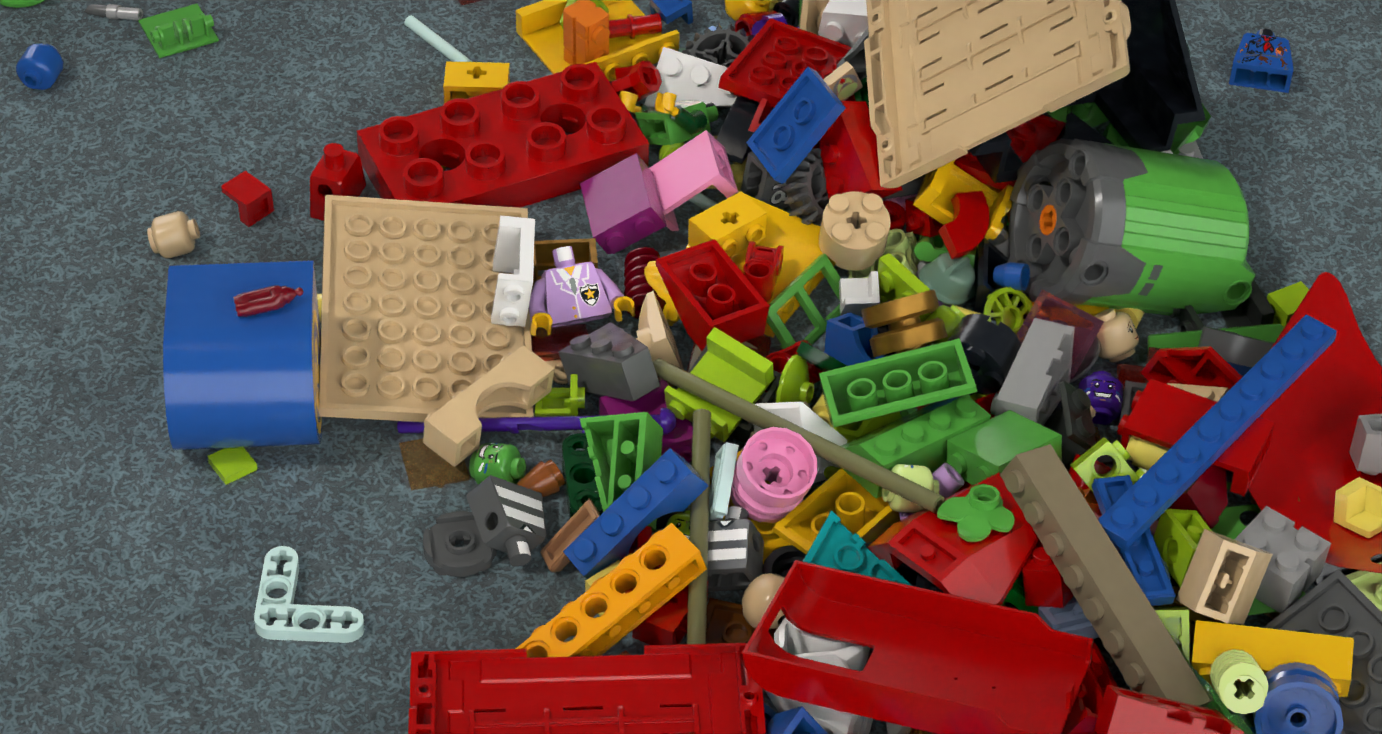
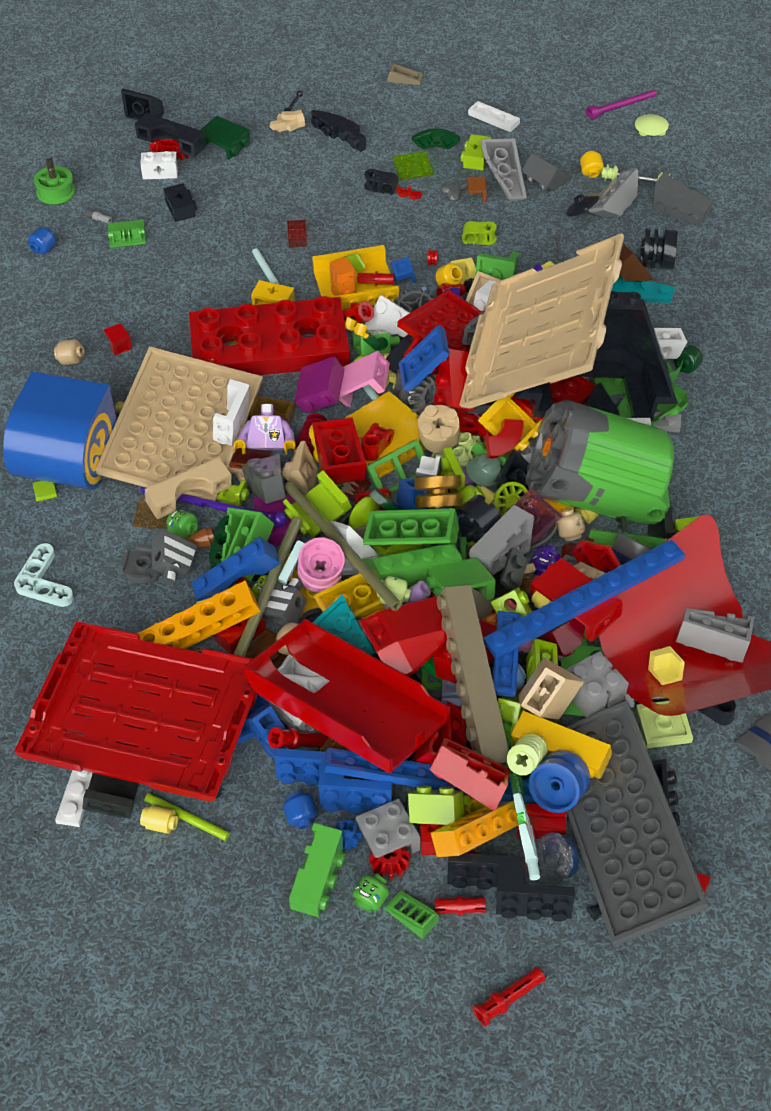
camera: 20 degrees right, 5 degrees up
(264, 299) = (70, 402): dark red piece -> none
(335, 174) = (168, 336): red torso -> none
(577, 524) = (202, 570): medium nougat tile -> none
(730, 224) = (368, 410): yellow brick -> none
(844, 81) = (463, 338): tile -> none
(977, 513) = (415, 616): bright green plate -> none
(1012, 275) = (521, 476): blue hose -> none
(1263, 62) = (745, 372): blue torso -> none

